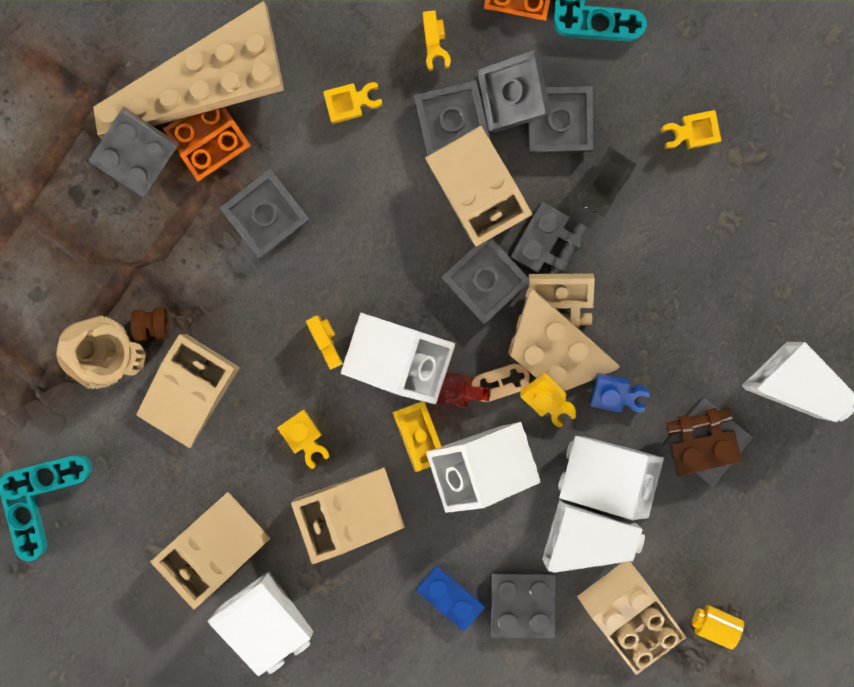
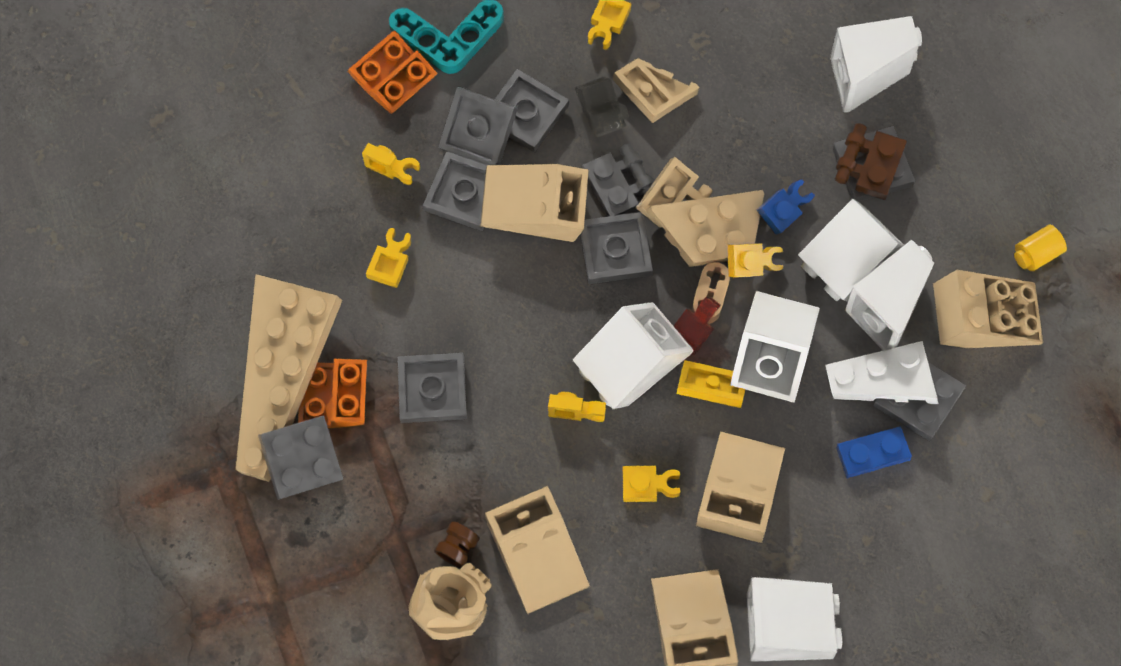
camera: 60 degrees left, 20 degrees down
(517, 571) = (887, 374): none -> white wing
(652, 213) = (653, 88): none -> tan wing

